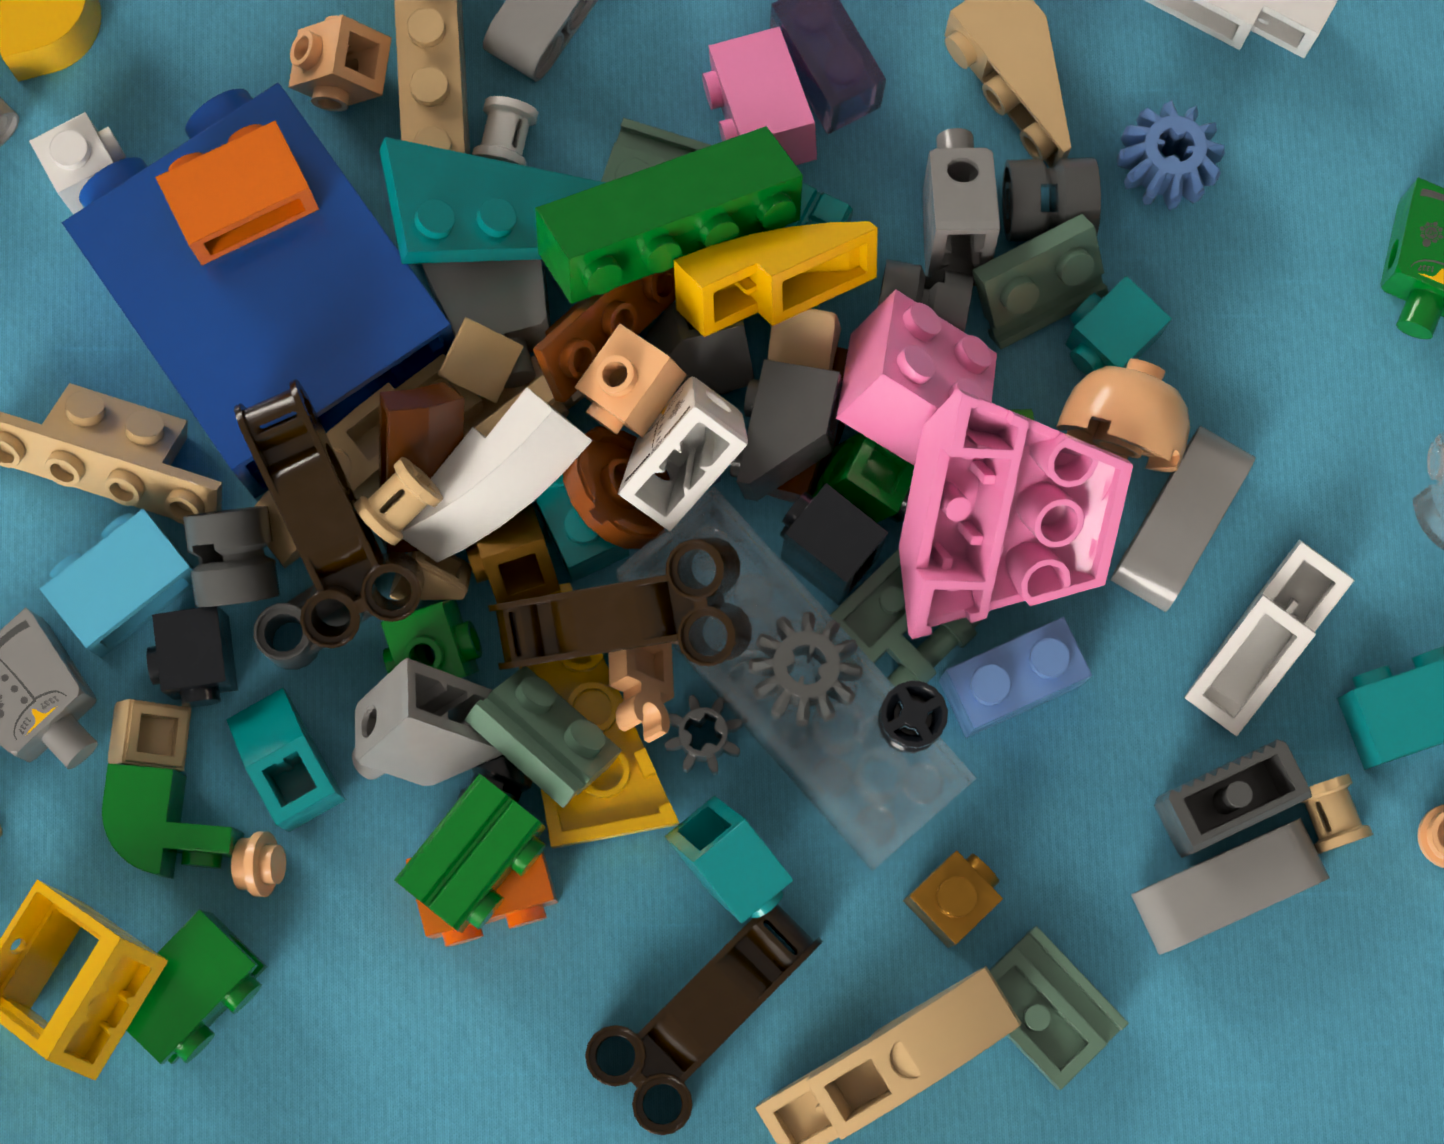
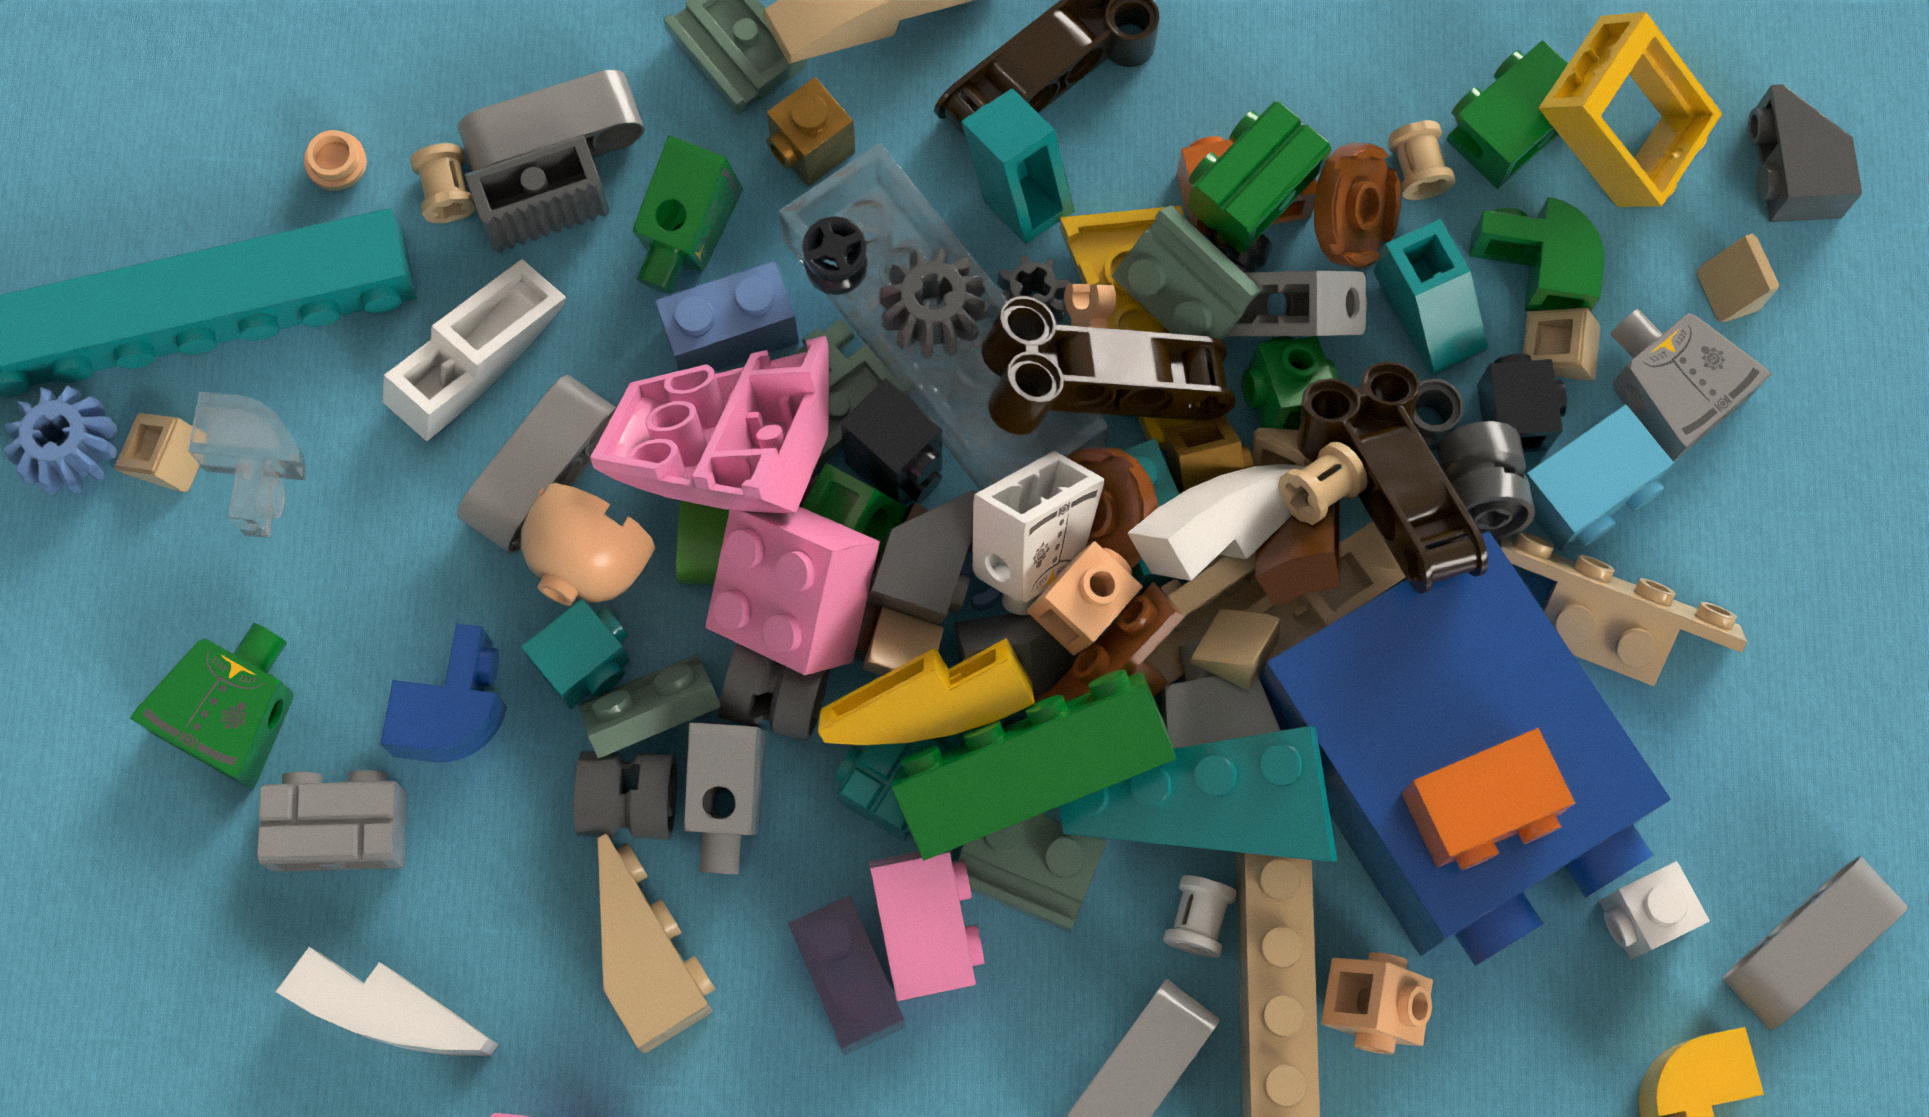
camera: 175 degrees left, 5 degrees down
(258, 864) = (1458, 211): light nougat plate -> none
(294, 925) = (1421, 160): none -> tan bush
(368, 852) = (1356, 205): none -> dark orange tile
(1075, 789) = (688, 191): none -> green torso
(1170, 135) = (475, 860): medium blue gear -> none
(1232, 260) = (449, 719): none -> blue brick
(1319, 158) = (332, 824): none -> light grey brick

